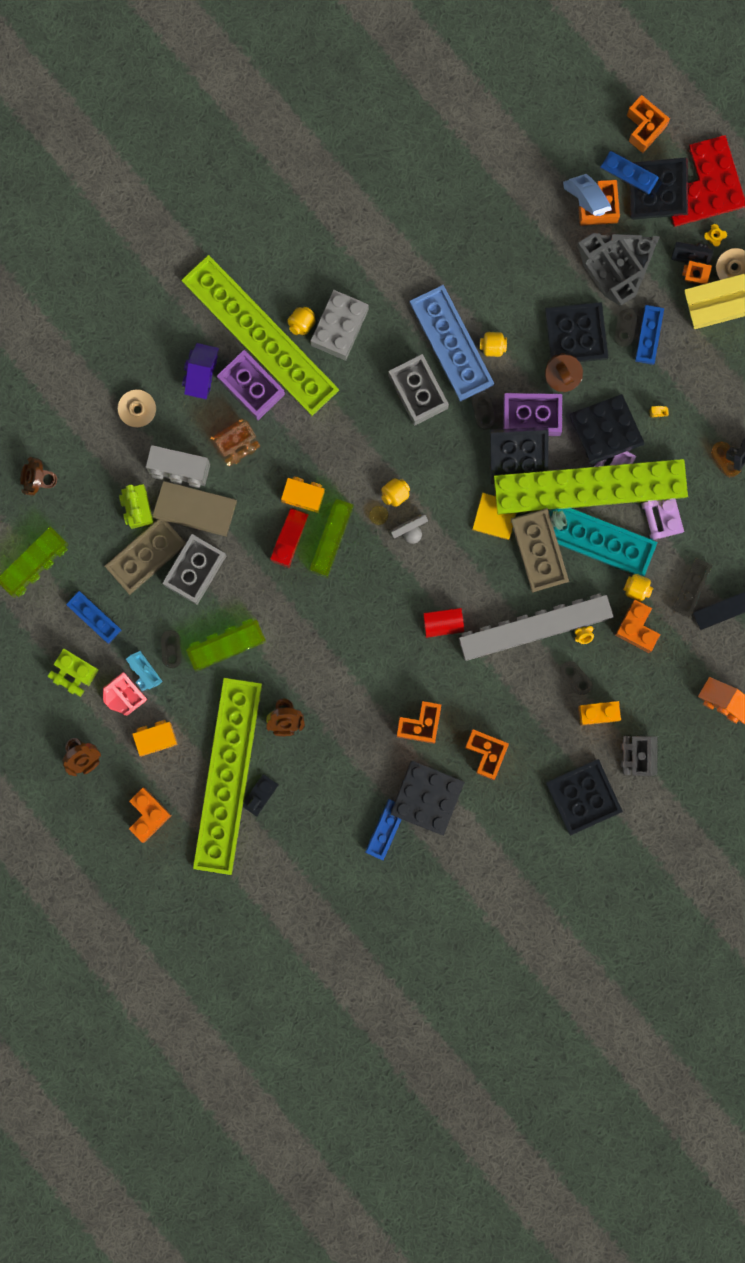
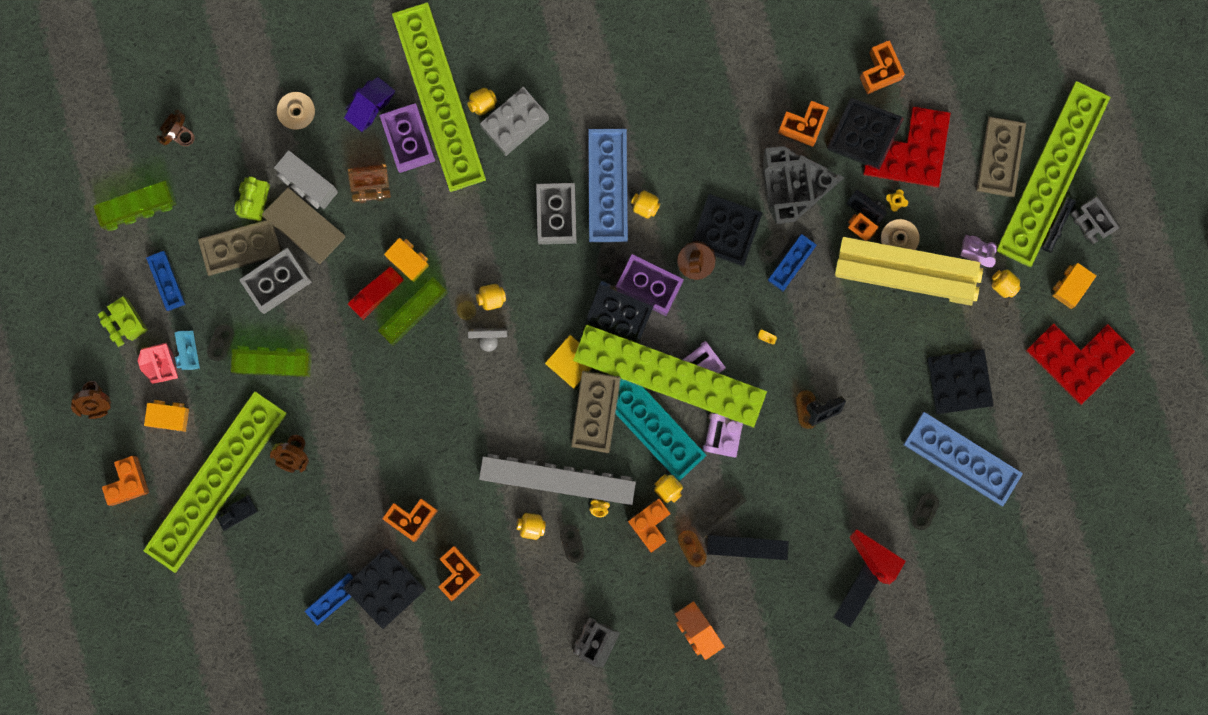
camera: 25 degrees right, 0 degrees up
(443, 622) = (477, 436): red brick -> none
(531, 680) = (531, 526): none -> yellow head
(558, 519) = (625, 392): sand green plate -> none
(584, 797) = (526, 656): black plate -> none
(588, 194) = (795, 109): light blue slope -> none
(599, 713) = (577, 586): light orange brick -> none
(606, 429) = (710, 330): black plate -> none
(629, 172) = (845, 106): blue plate -> none
(684, 631) = (692, 548): none -> clear orange plate

